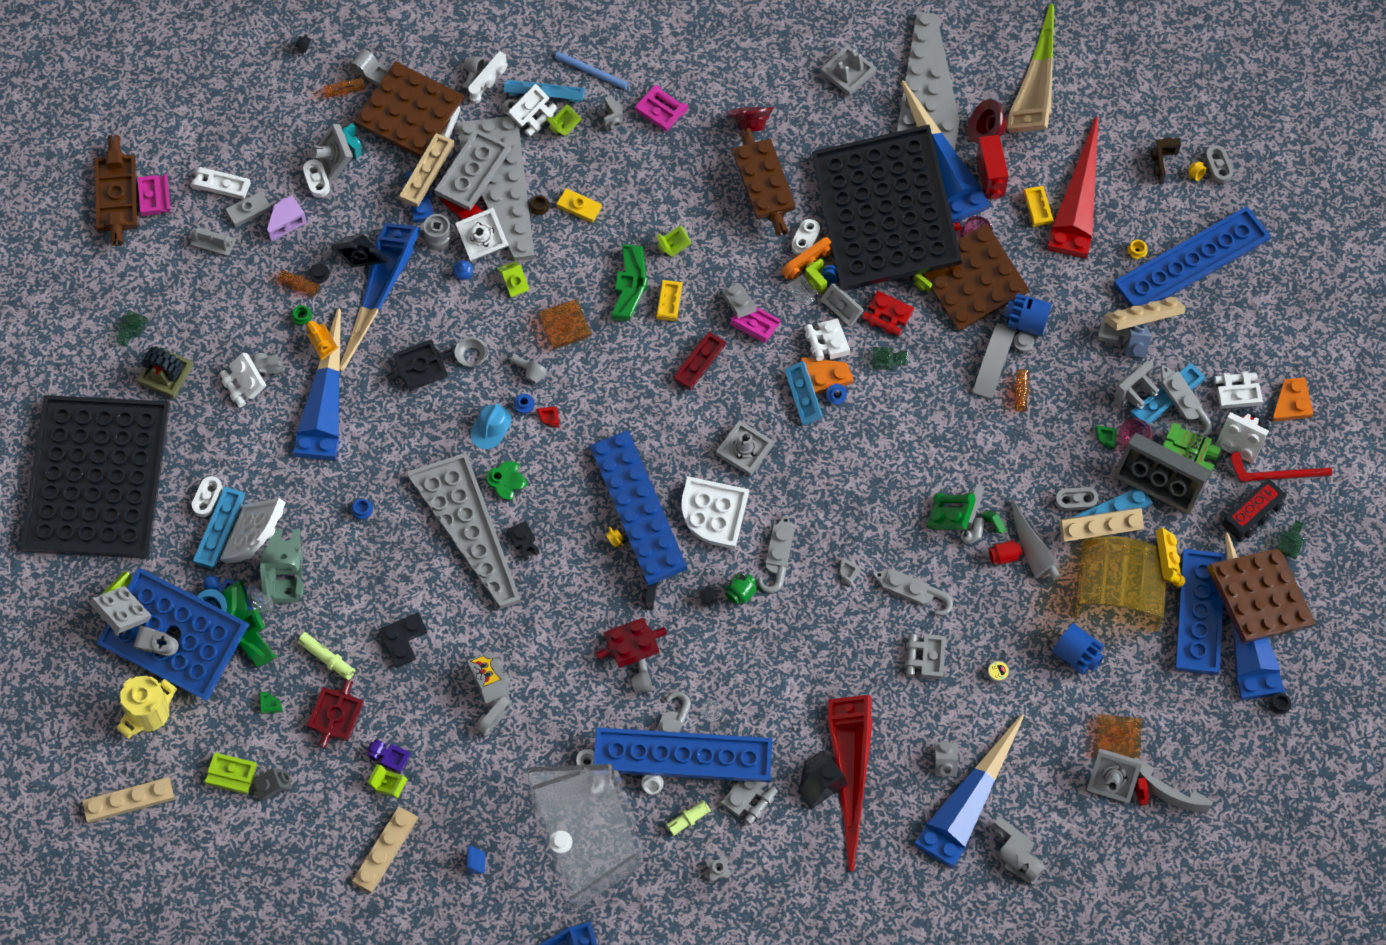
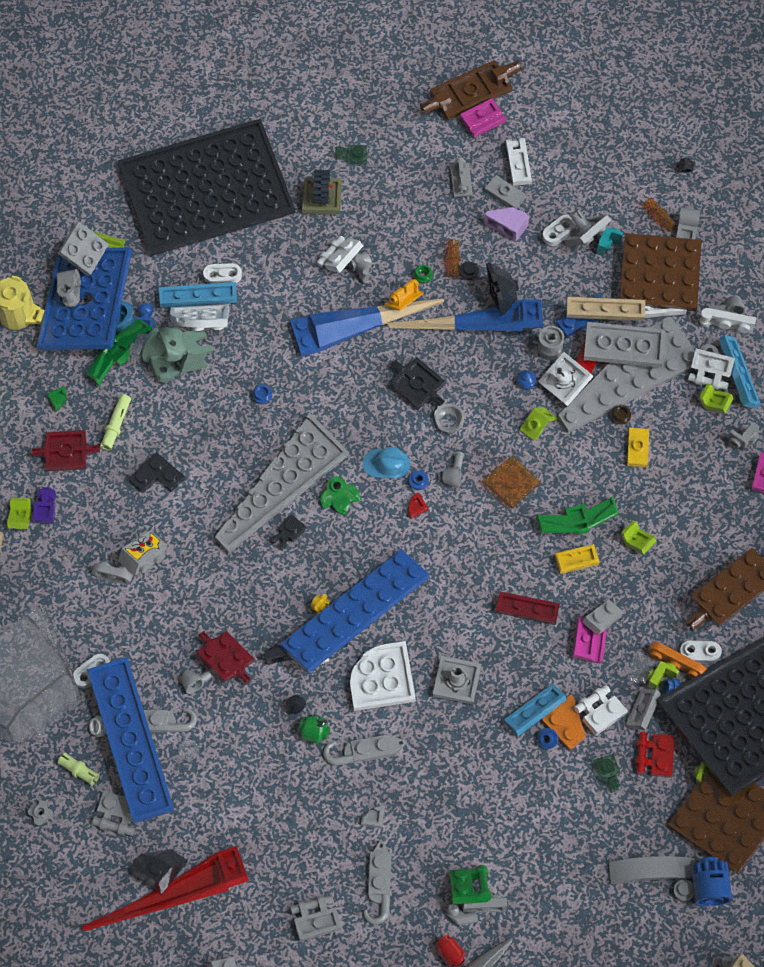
camera: 70 degrees right, 0 degrees up
(994, 518) = (479, 930): green tile -> none
(1021, 390) = (631, 907): clear orange pin -> none

